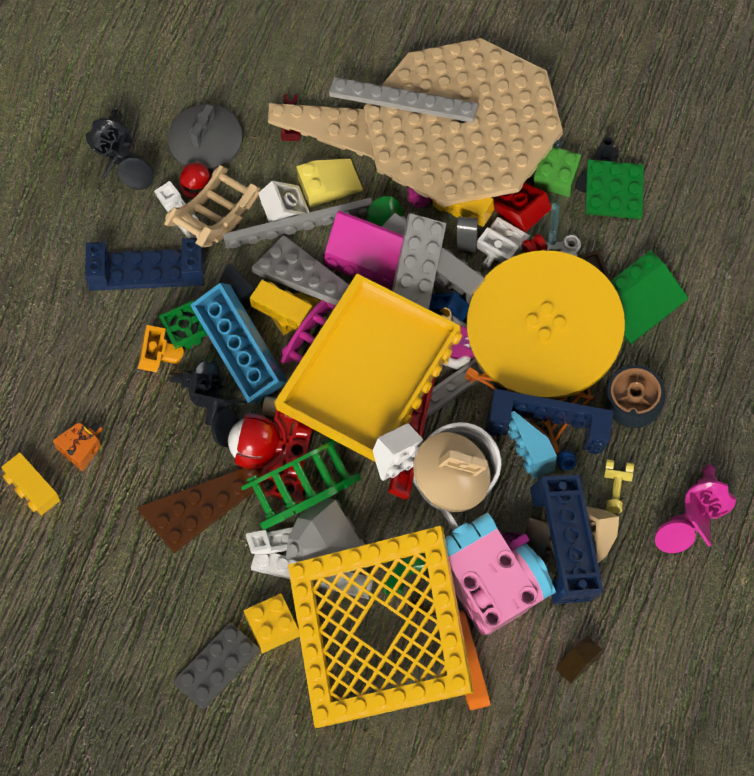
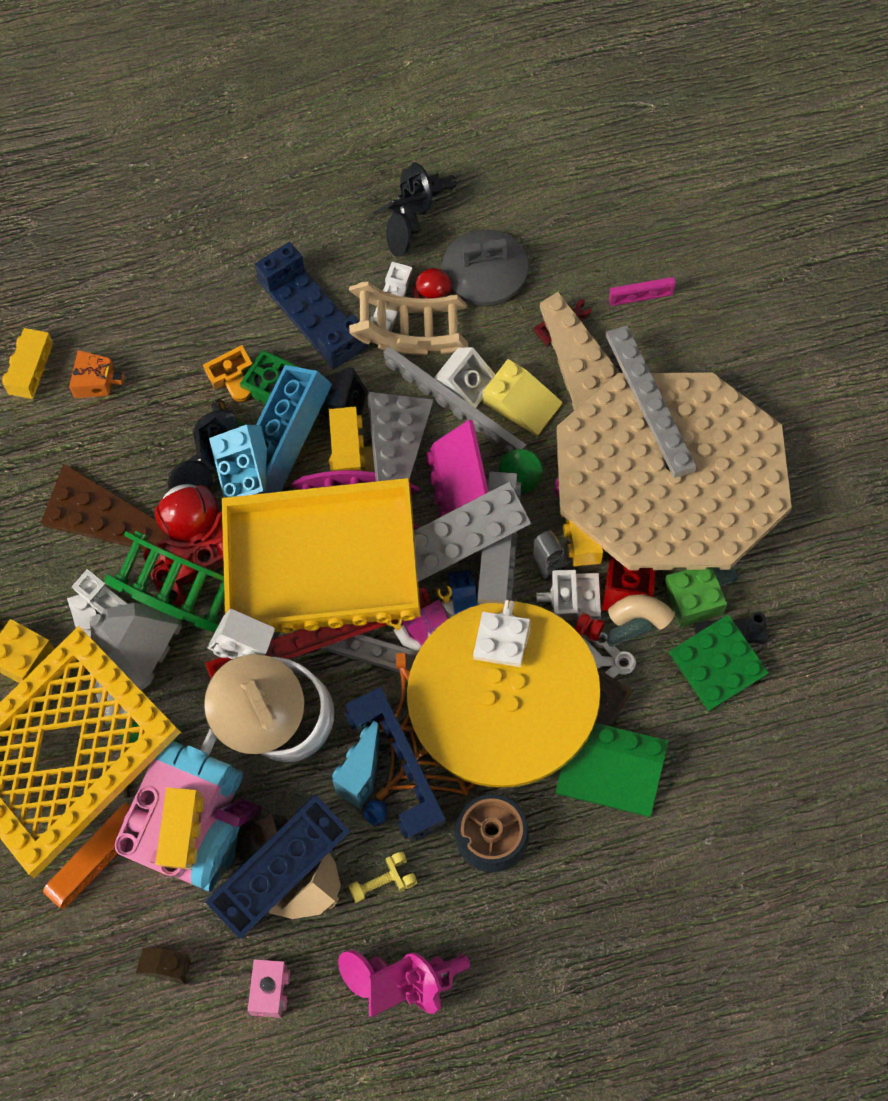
camera: 55 degrees right, 0 degrees up
(247, 380) = (241, 460): none -> medium azure slope
(307, 55) = (642, 291): none -> dark pink tile
(510, 296) = (502, 637): none -> white plate
(512, 569) = (179, 828): none -> yellow brick
(548, 203) = (641, 607): none -> tan cylinder
(643, 601) = (267, 988): none -> bright pink piece

